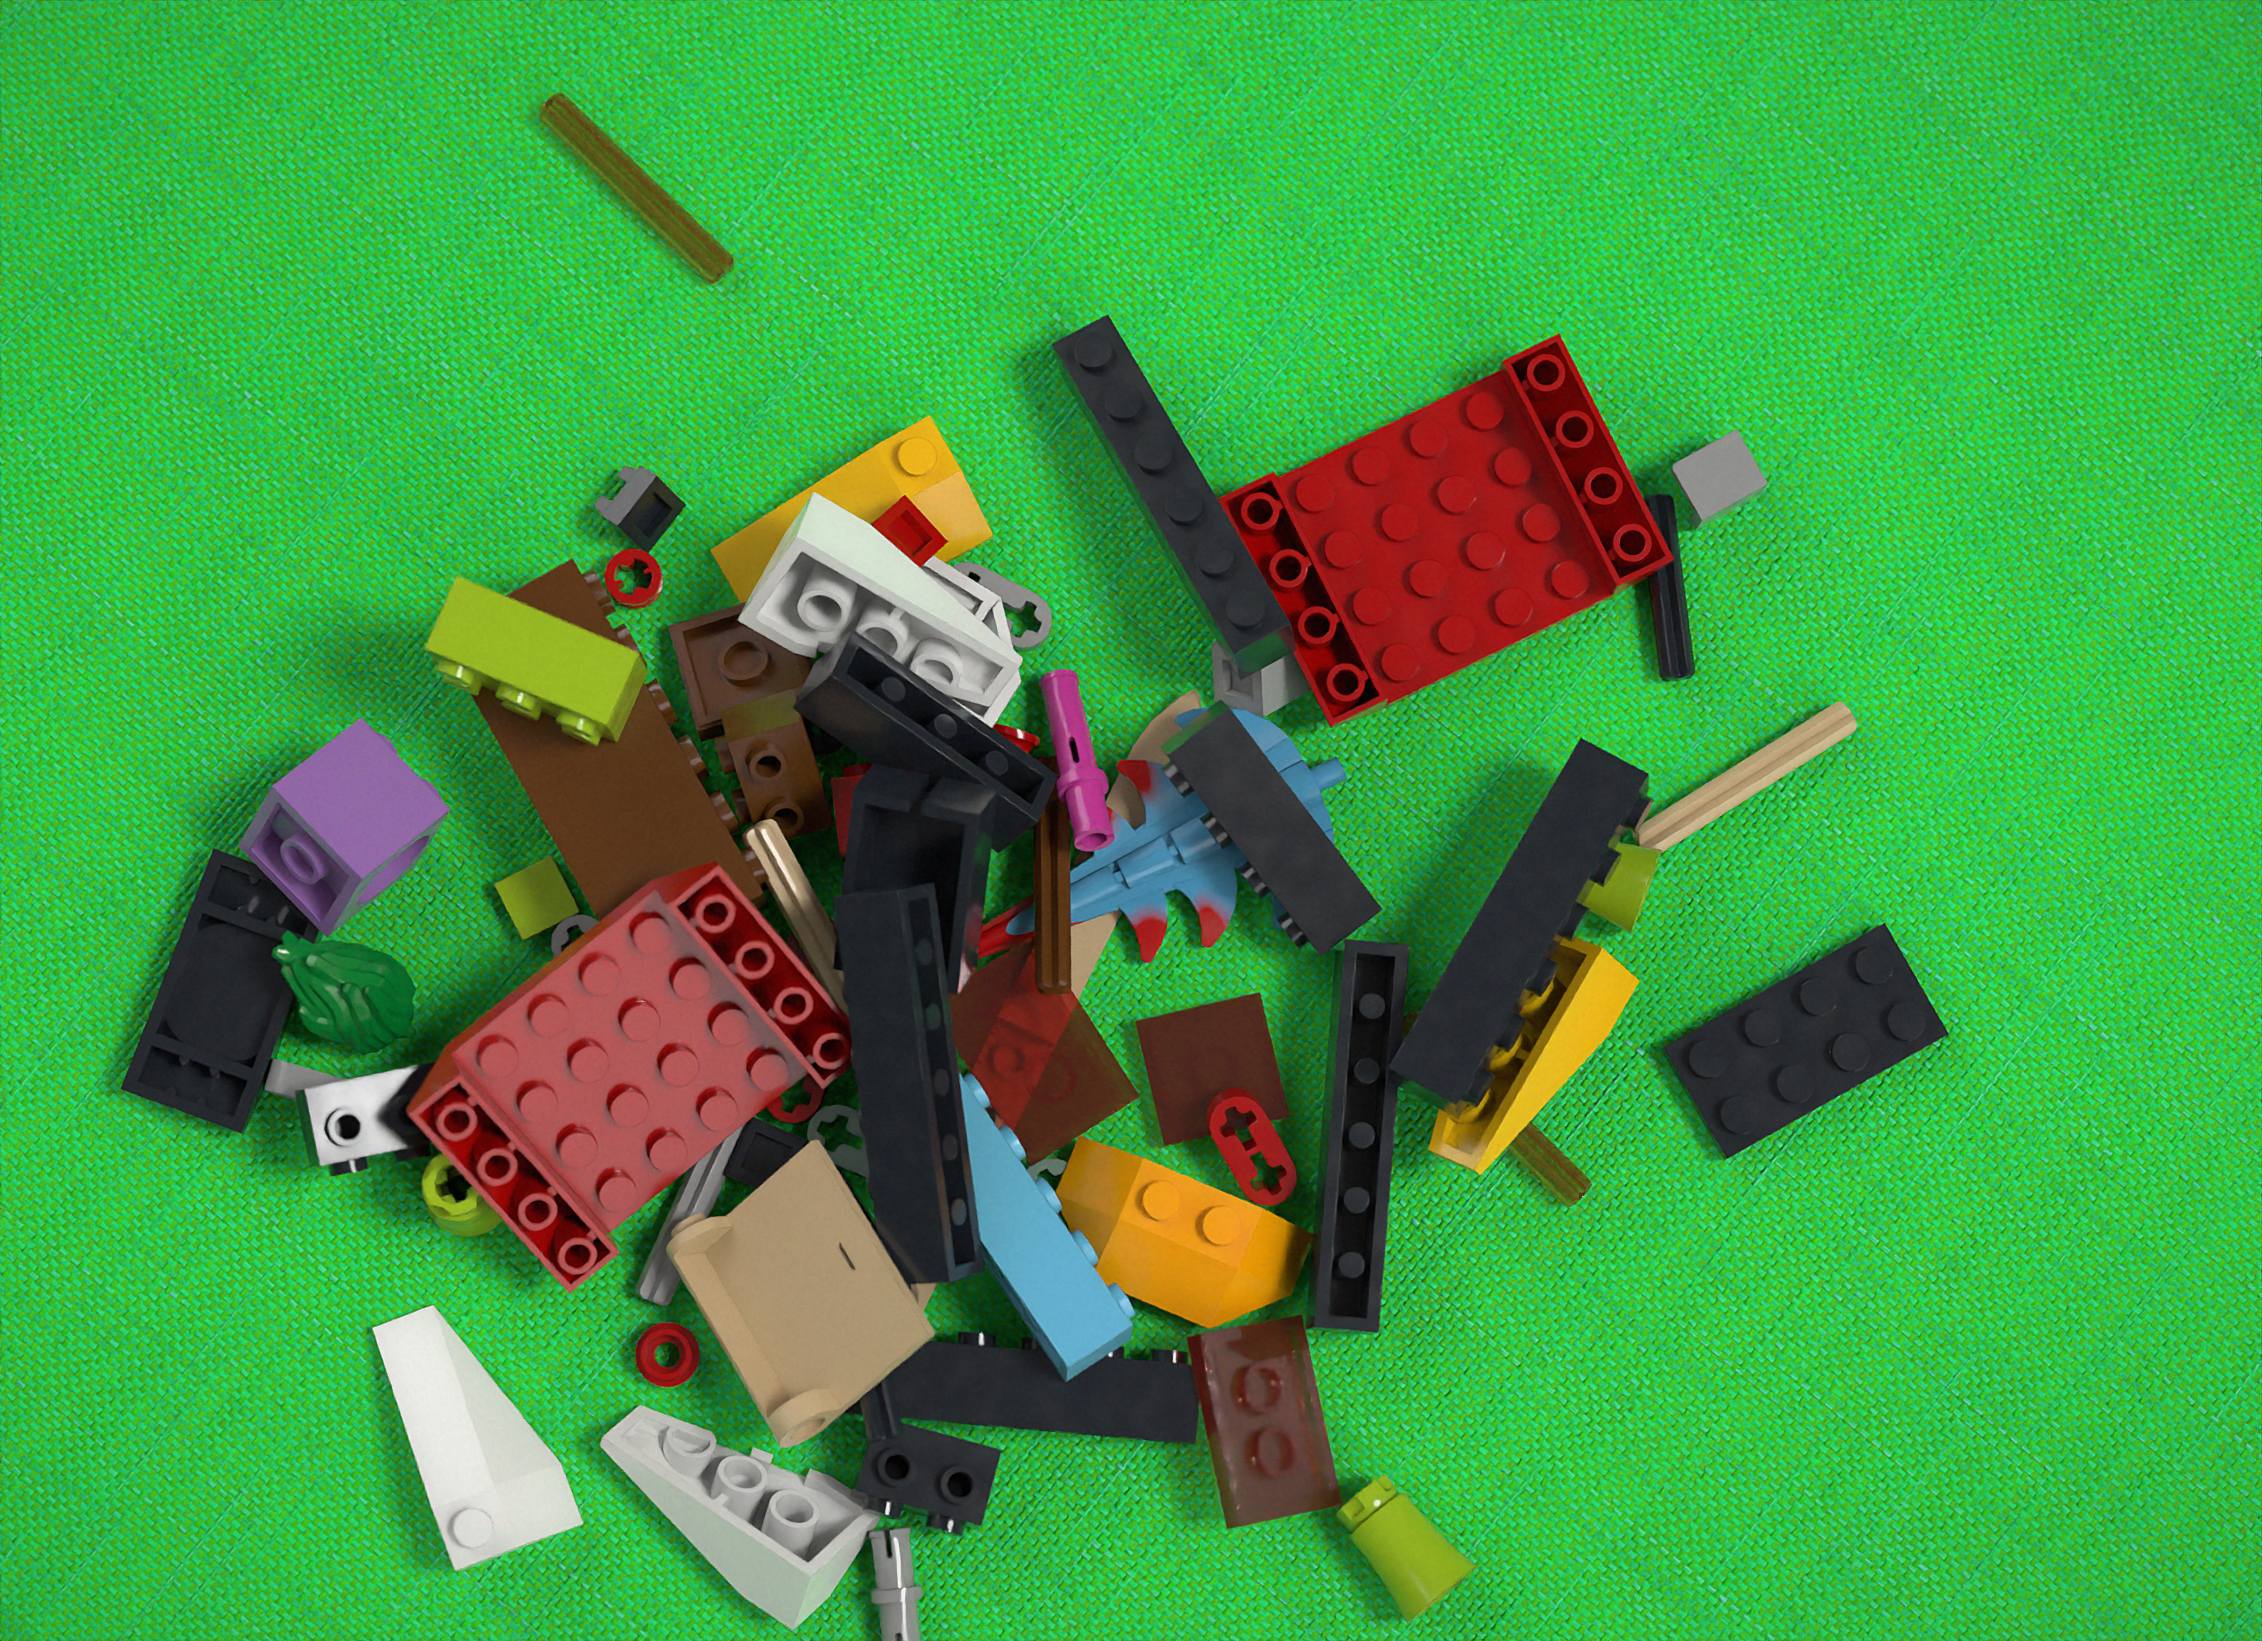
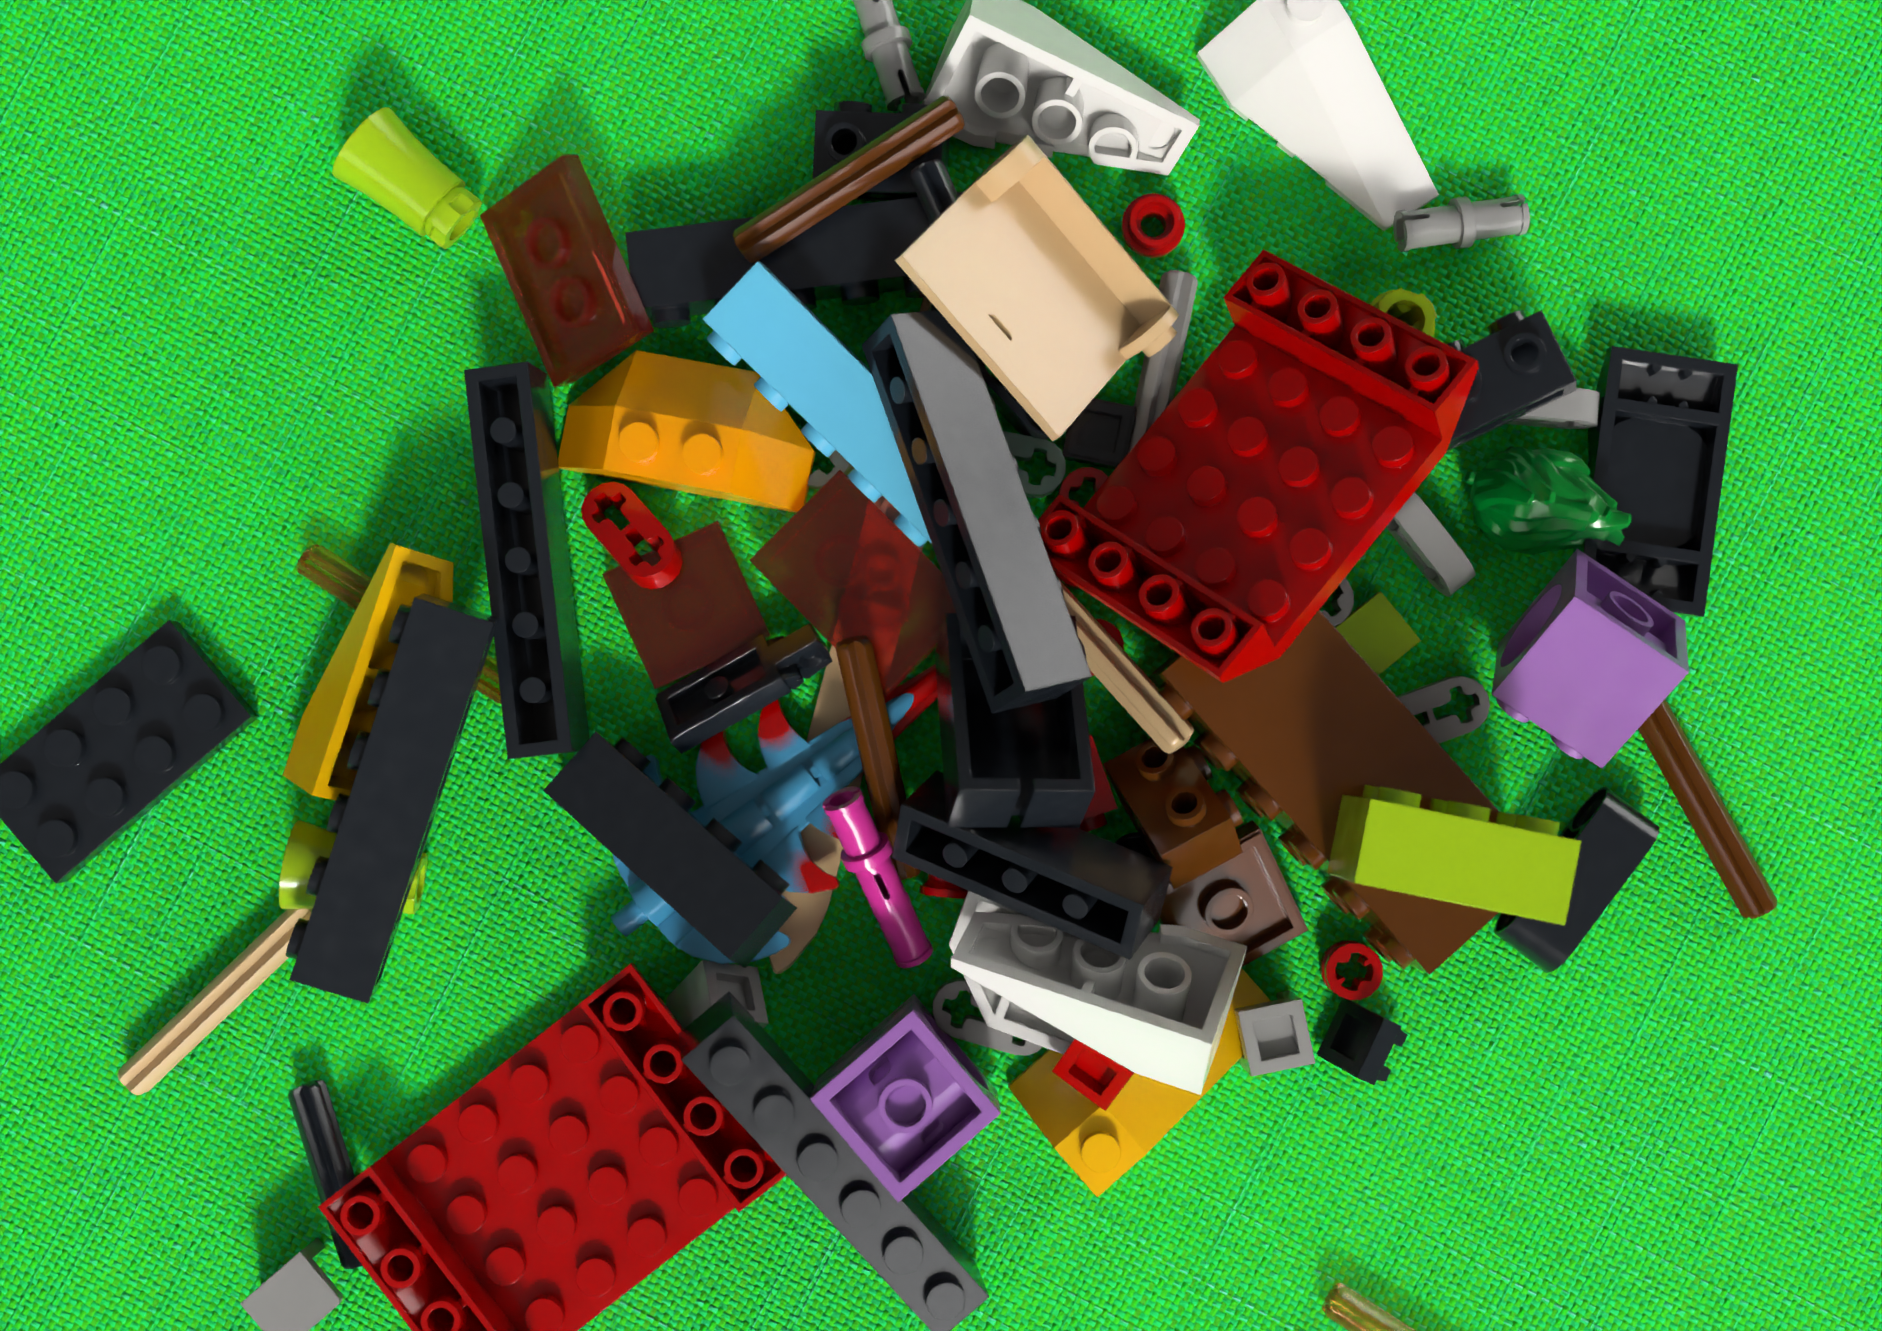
camera: 170 degrees right, 5 degrees up
(251, 663) = (1707, 813): none -> reddish brown axle
(358, 1291) = (1461, 222): none -> light grey pin
(389, 622) = (1611, 847): none -> black beam
(463, 971) = (1431, 547): none -> light grey beam
(491, 828) = (1436, 694): none -> light grey beam
(726, 532) = (1274, 1035): none -> light grey panel
(963, 1440) = (848, 179): none -> reddish brown axle
(1092, 547) = (905, 1098): none -> medium lavender brick
(1175, 977) = (739, 685): none -> black hinge

